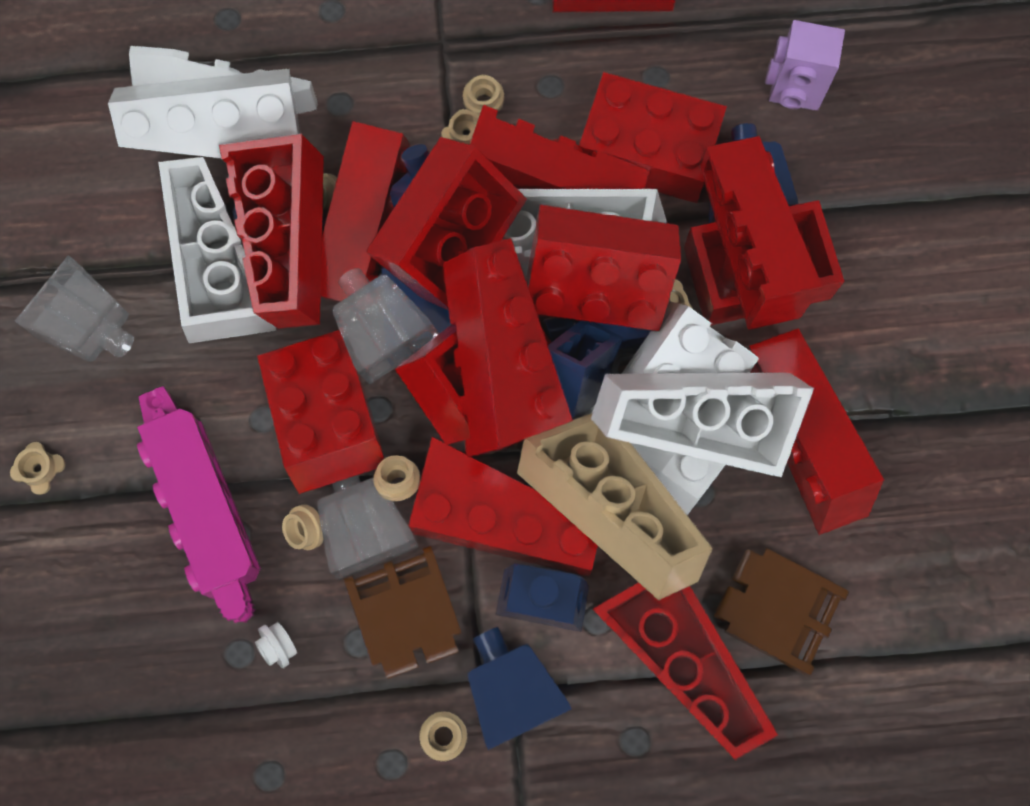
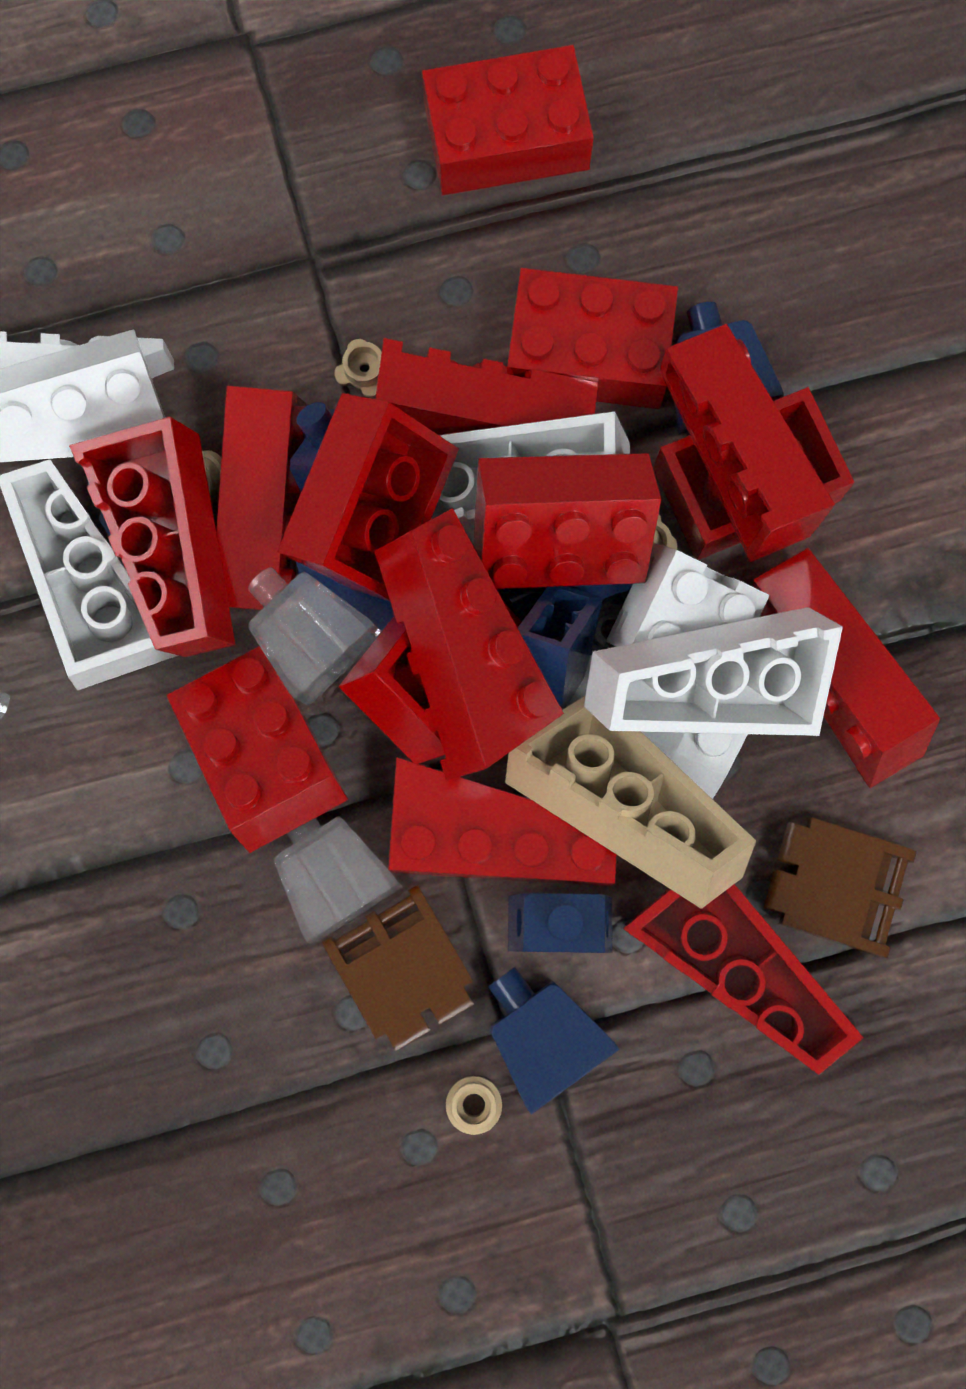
camera: 10 degrees left, 5 degrees up
(199, 504) = (130, 883): dark pink hinge -> none
(275, 645) = (256, 1035): white plate -> none
(303, 528) = (261, 891): tan plate -> none
(392, 468) = (360, 801): tan plate -> none
(480, 86) = (377, 305): tan plate -> none
(804, 65) = (763, 217): lavender brick -> none

